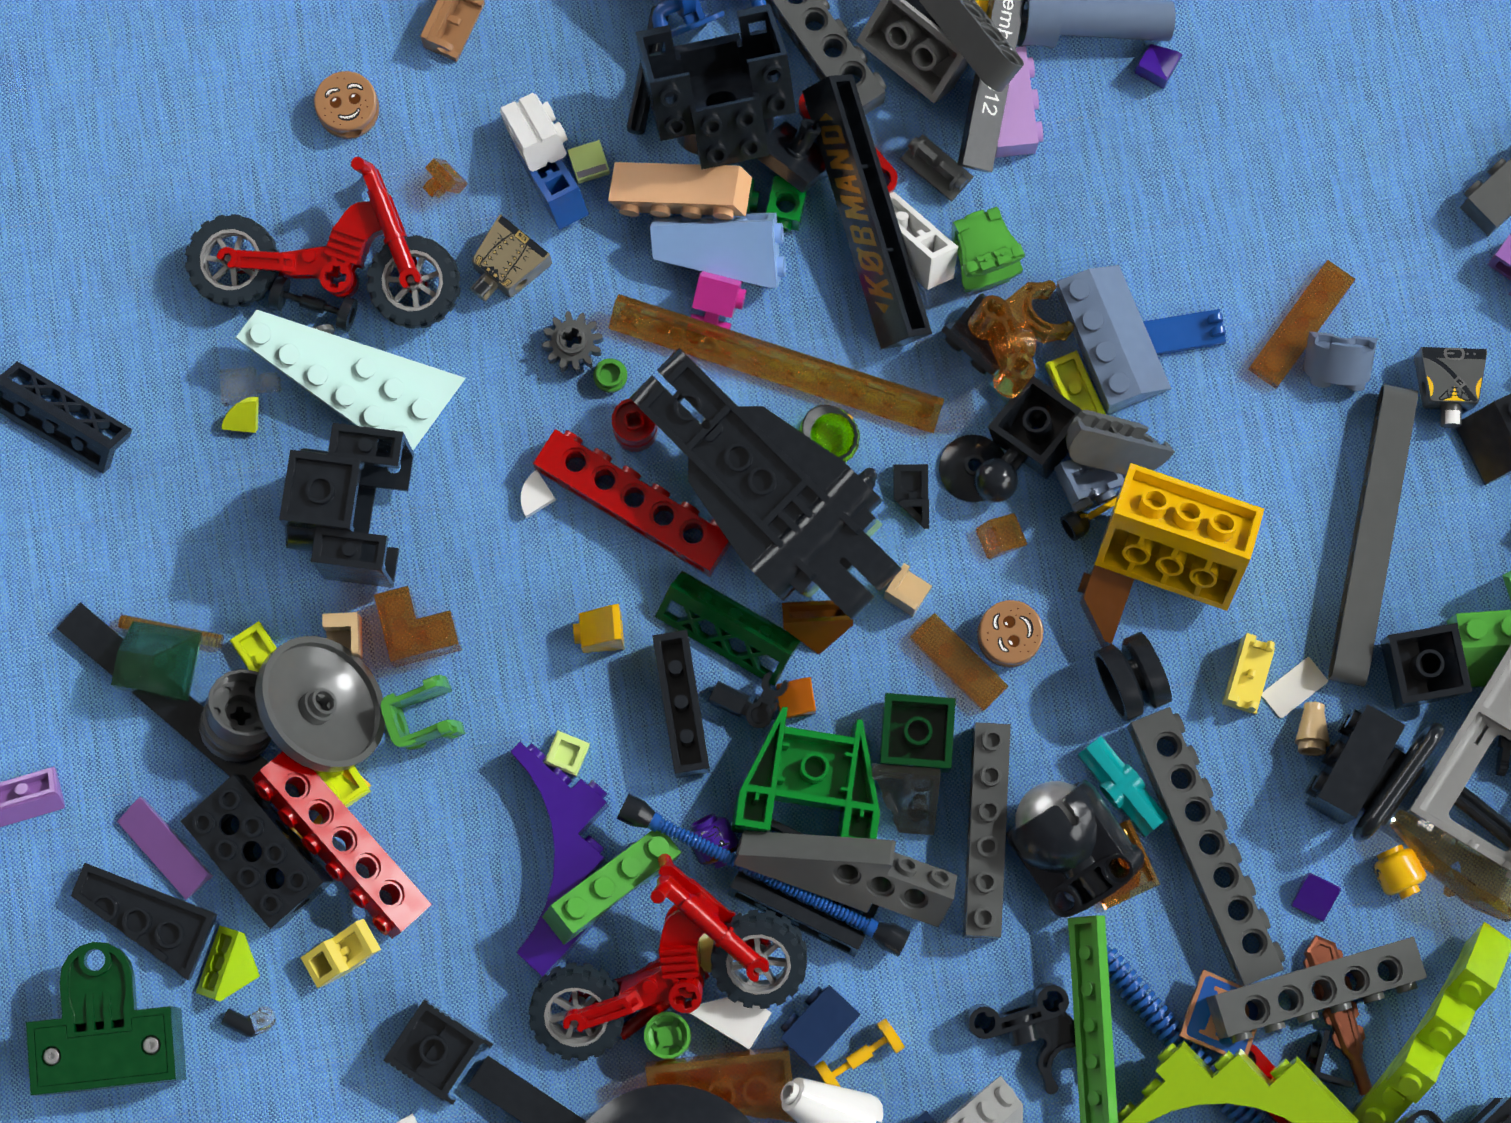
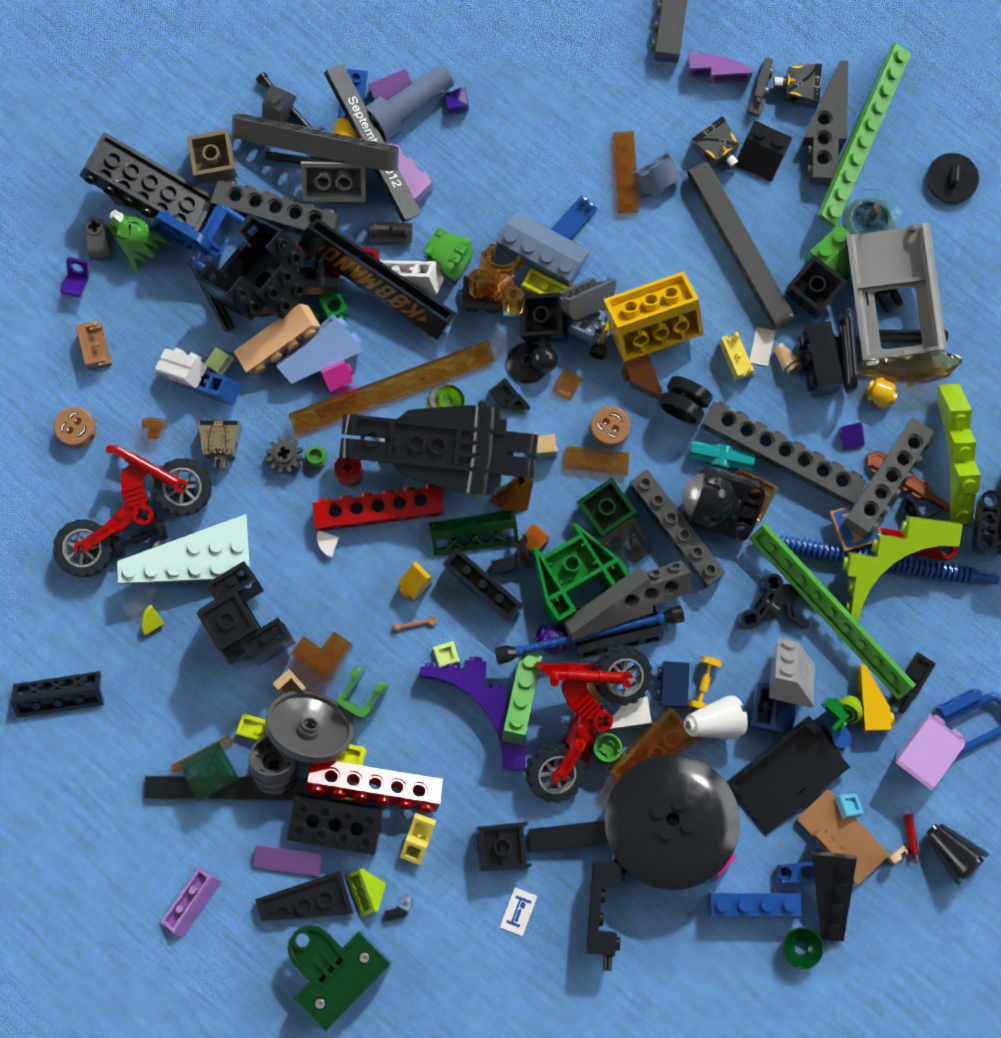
camera: 40 degrees left, 0 degrees up
(584, 696) = (432, 621): none -> nougat hinge

